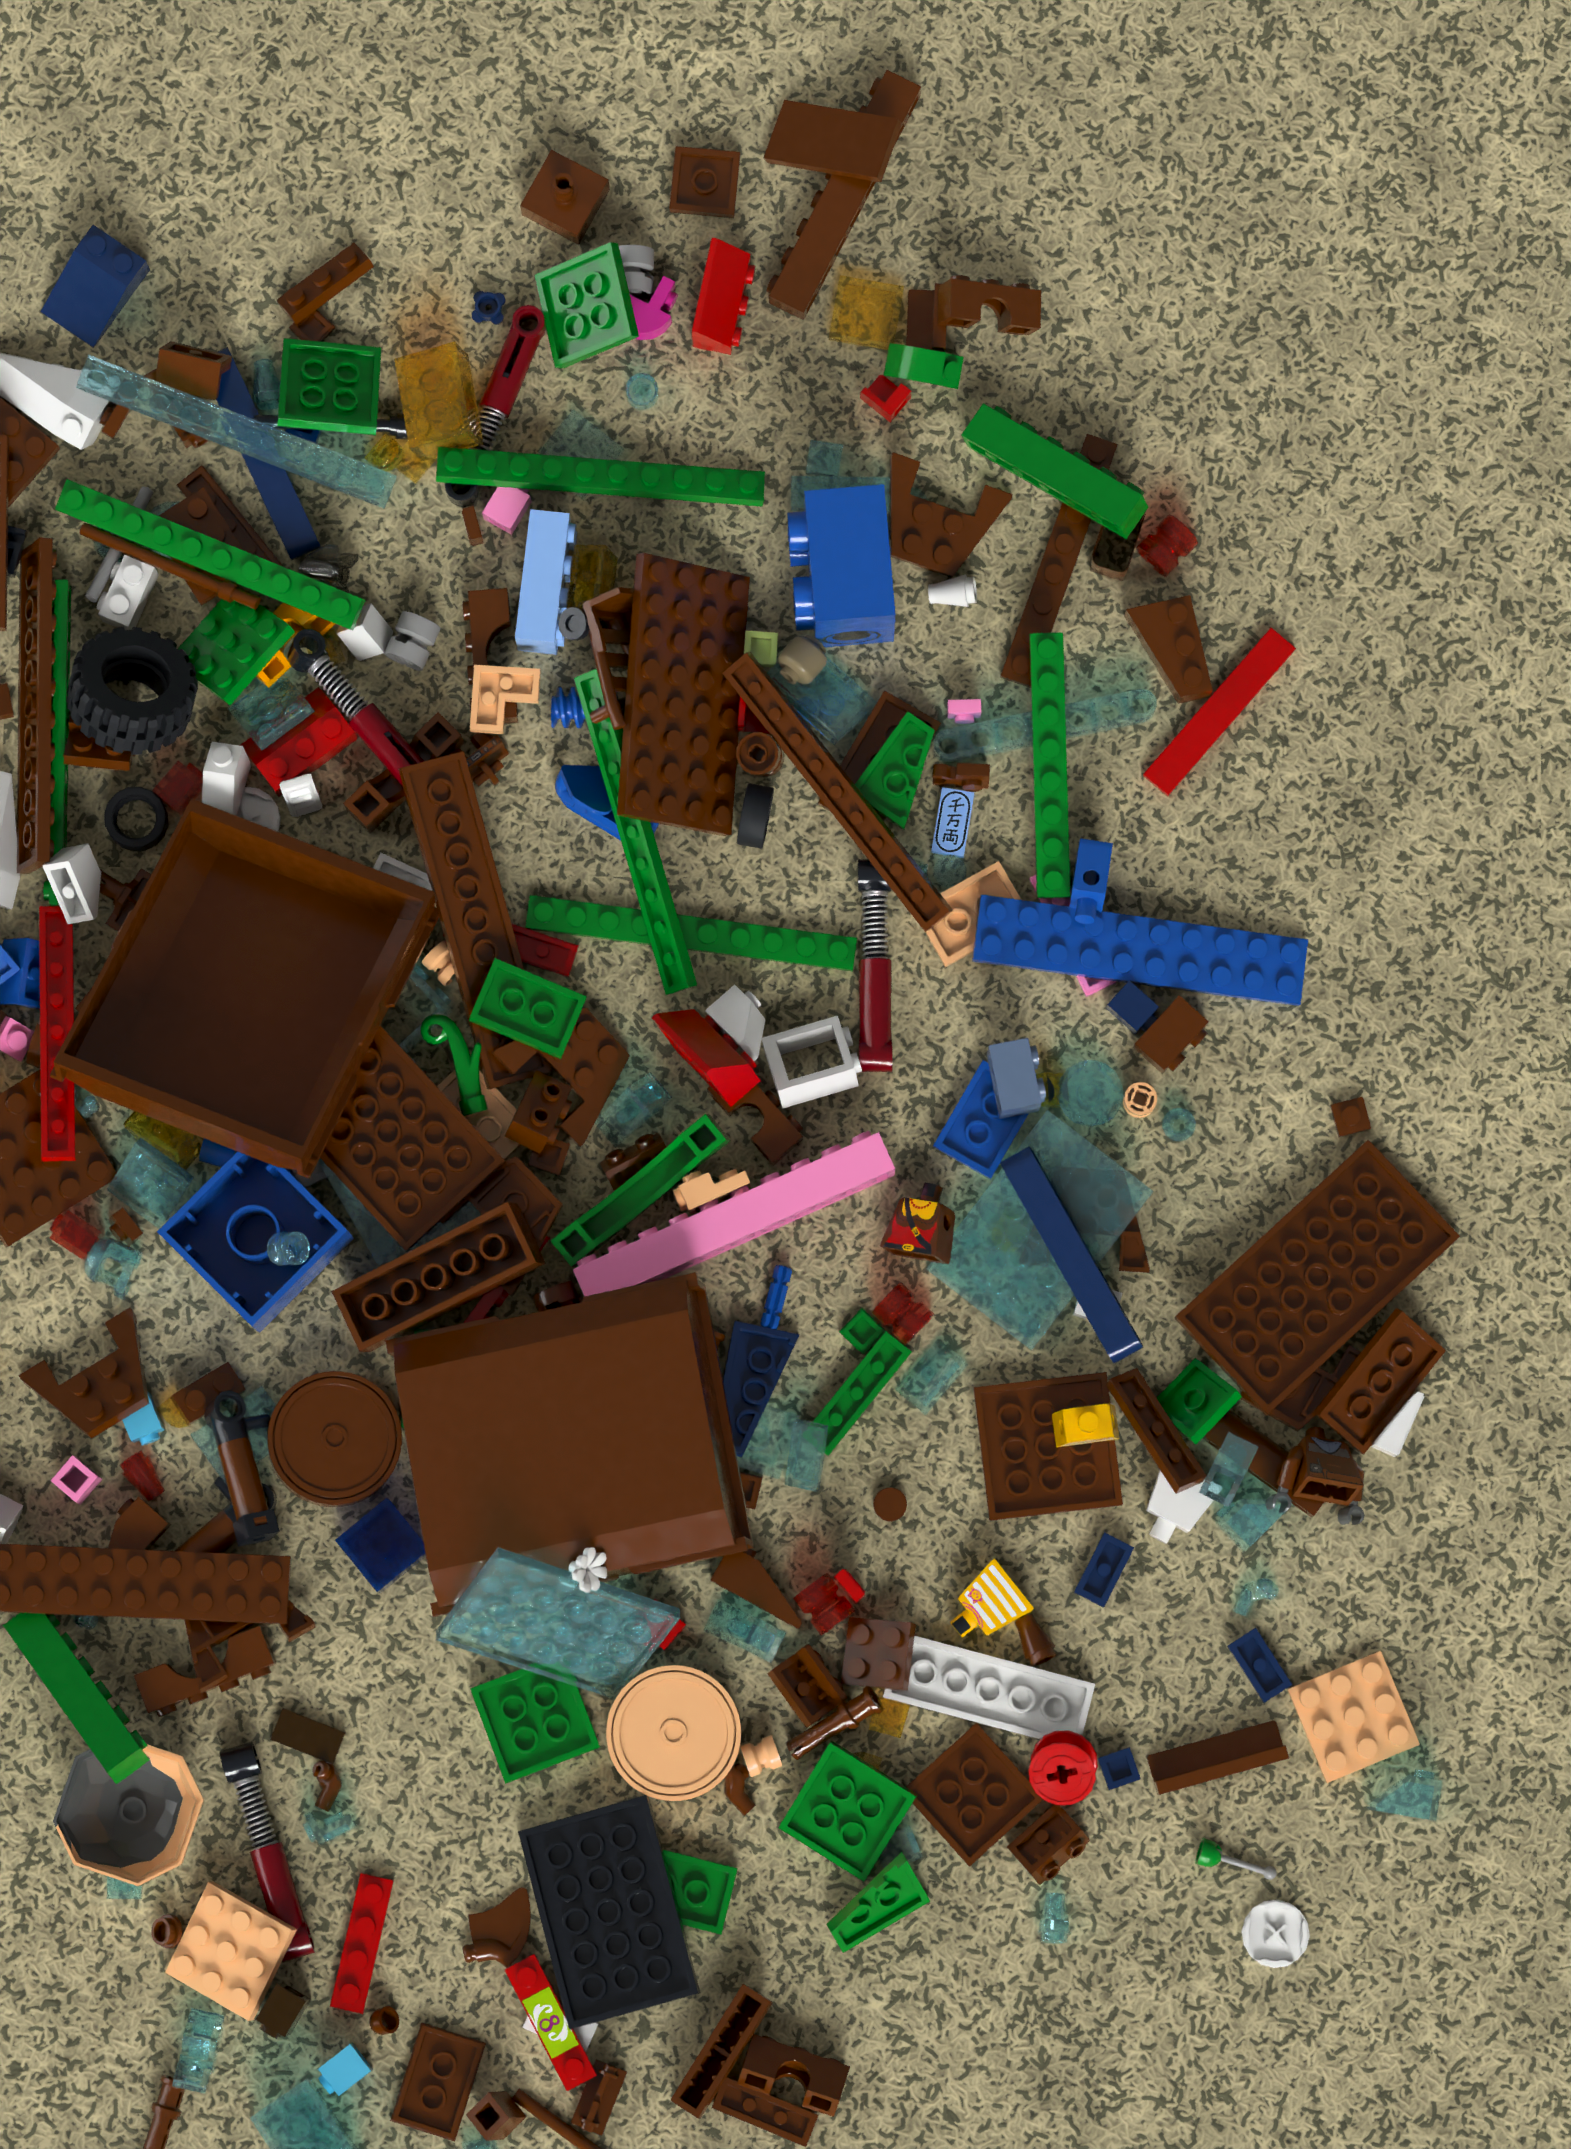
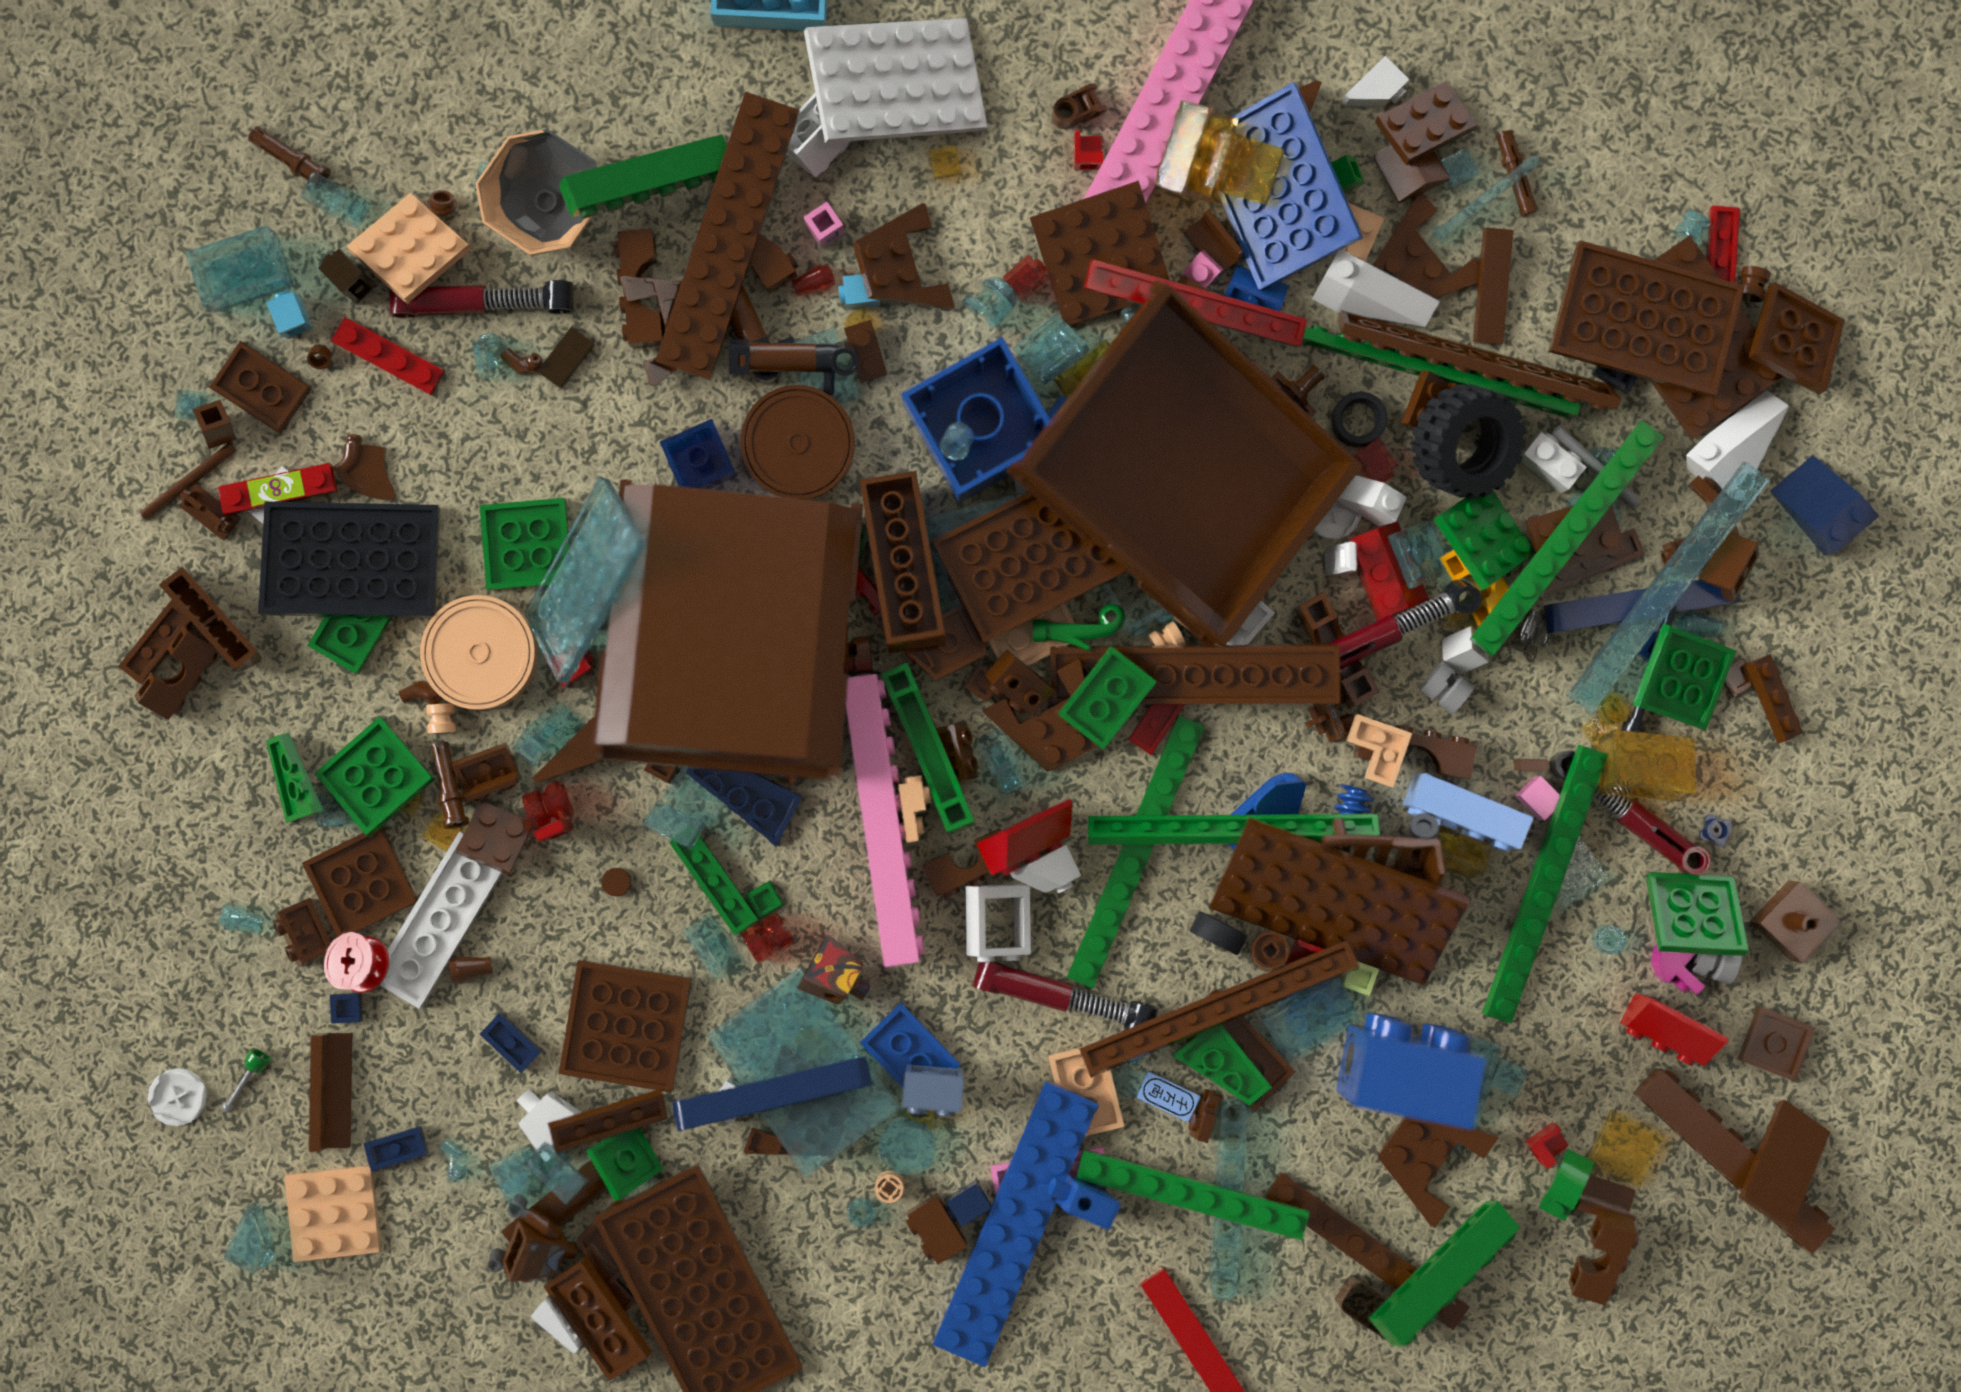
camera: 100 degrees right, 5 degrees up
(75, 882) = (1318, 352): white slope -> none
(124, 1227) = (1020, 318): reddish brown plate -> none
(225, 589) = (1534, 542): reddish brown bar -> none
(588, 1569) = (611, 615): white plant -> none
(776, 1297) = (812, 836): blue axle -> none
(802, 659) = (1340, 1011): dark tan head -> none
(955, 591) = (1364, 1154): white cone -> none
(964, 710) = (1259, 1134): bright pink plate -> none
(990, 1602) = (510, 941): torso -> none
(1085, 1425) = (628, 1062): yellow torso -> none
(1169, 543) = (1356, 1352): clear red wheel -> none
(1174, 645) = (1265, 1329): reddish brown wedge -> none
(1350, 1117) = (826, 1358): reddish brown plate -> none

